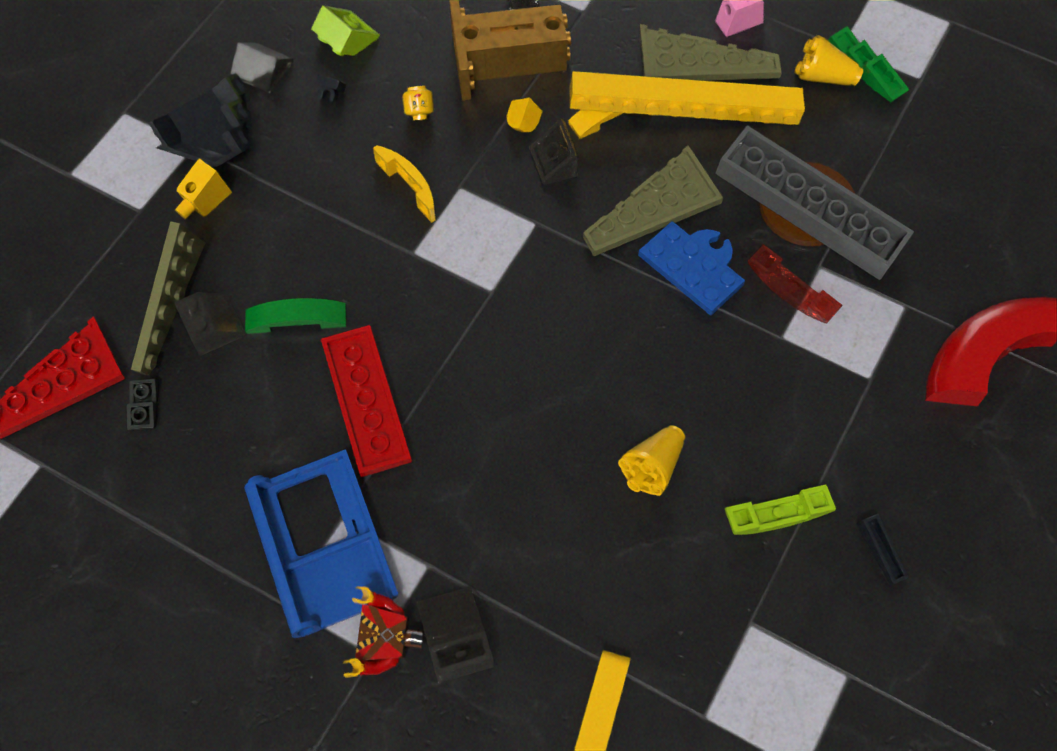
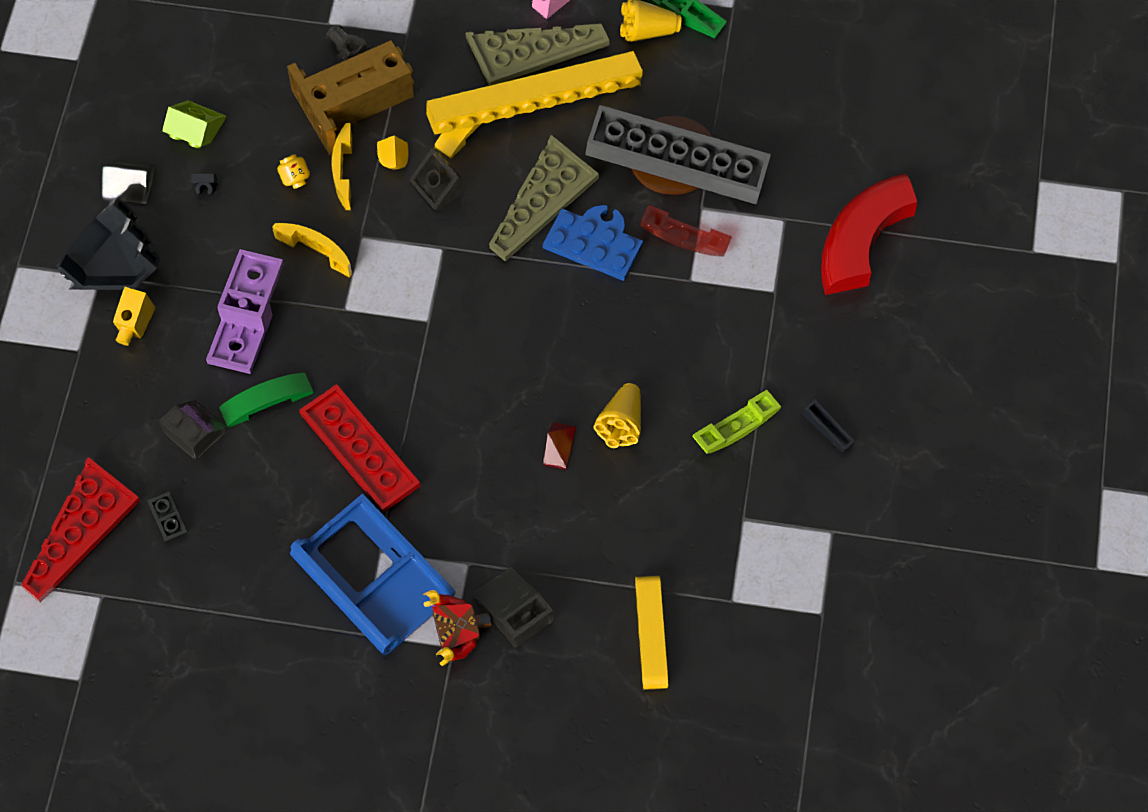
camera: 20 degrees left, 0 degrees up
(172, 278) = (148, 414): olive wing -> none
(309, 221) = (245, 311): none -> medium lavender bracket
(476, 93) = (342, 146): none -> yellow slope
(575, 468) = (559, 445): none -> dark red slope

